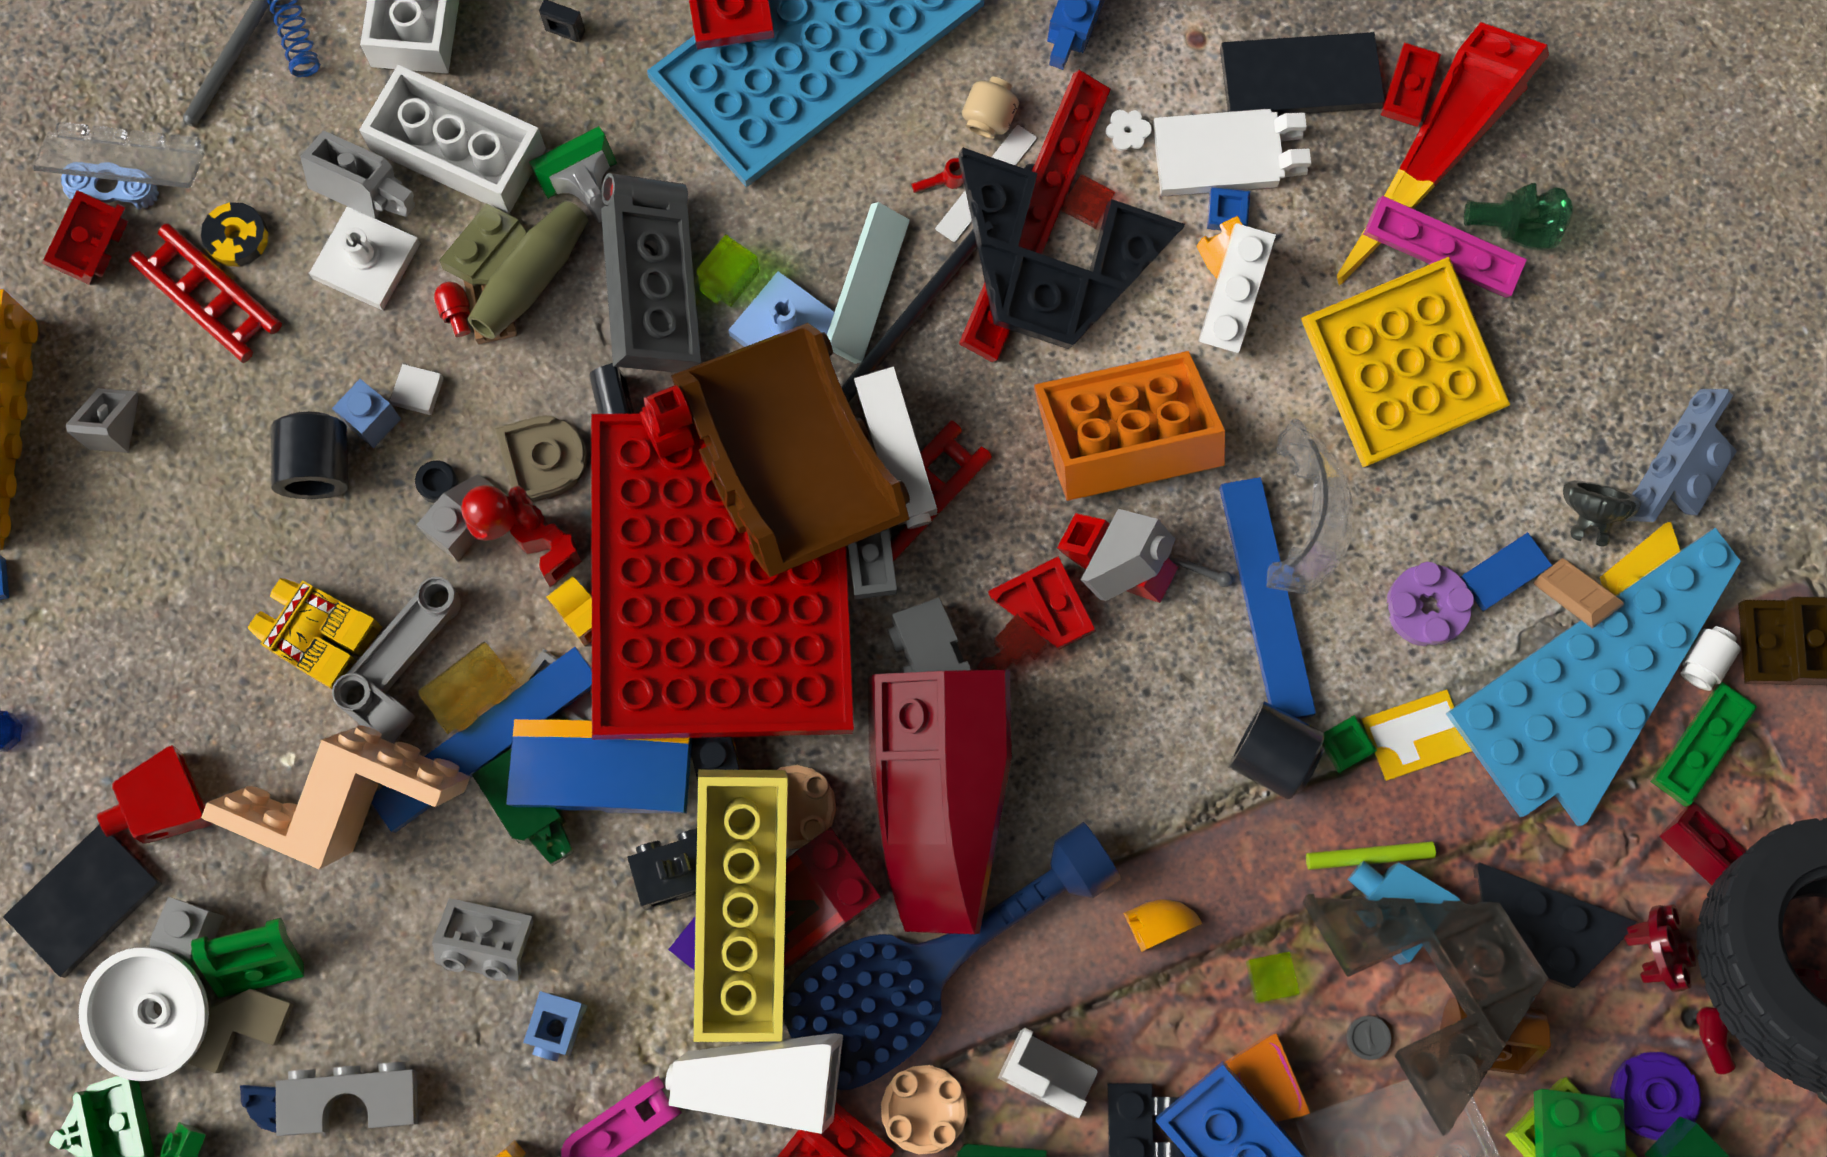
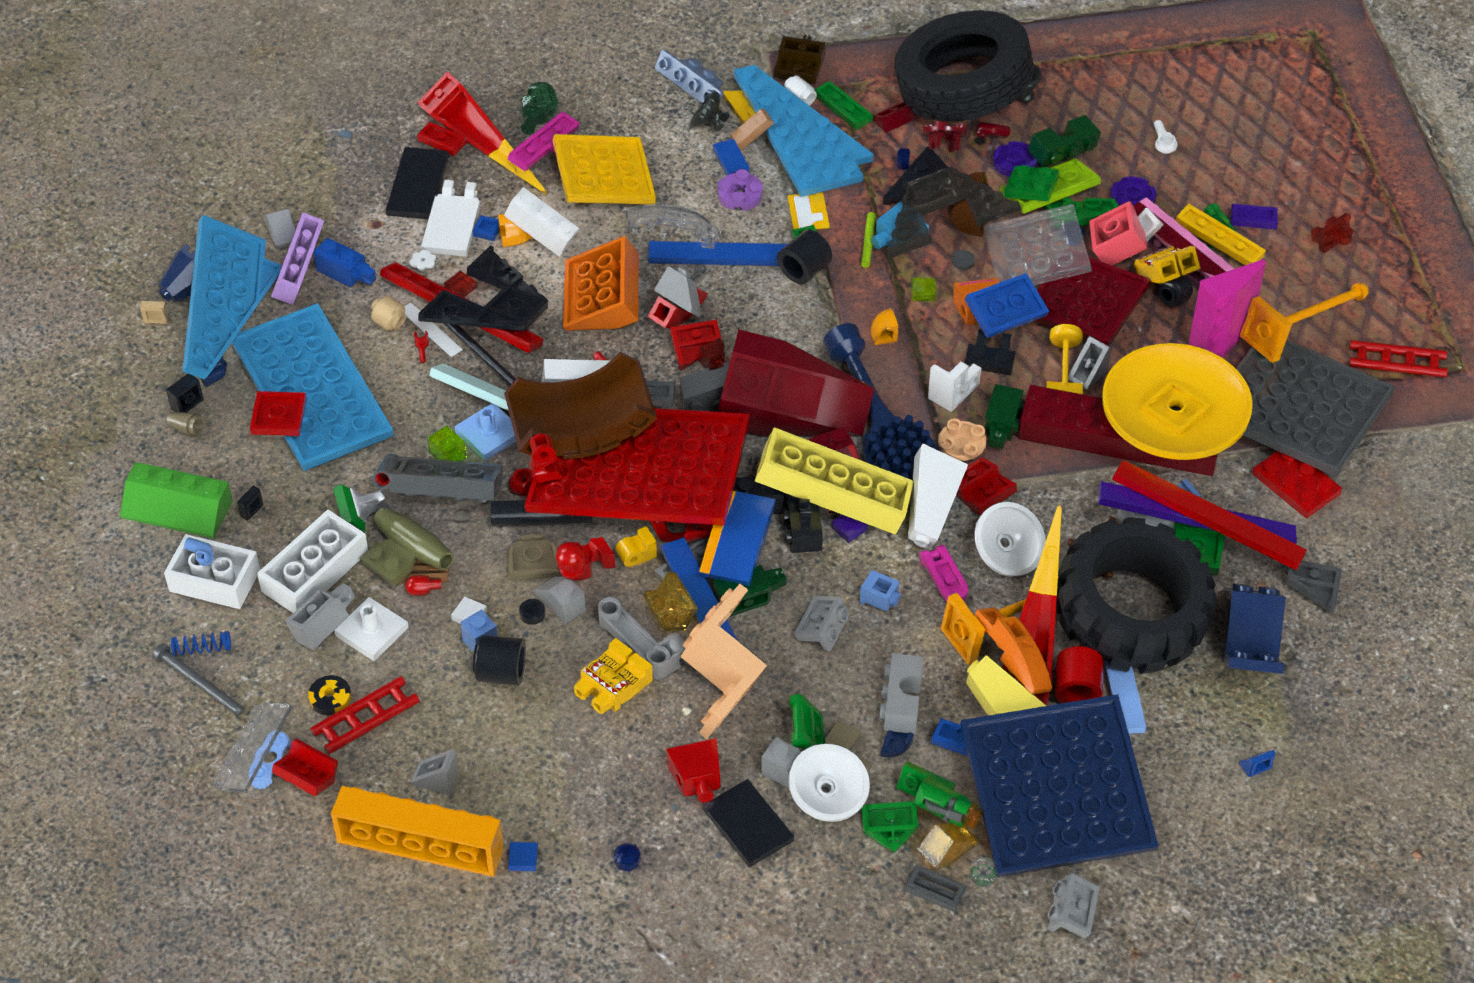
camera: 75 degrees left, 25 degrees down
(1587, 882) = (903, 158): none -> clear blue tile

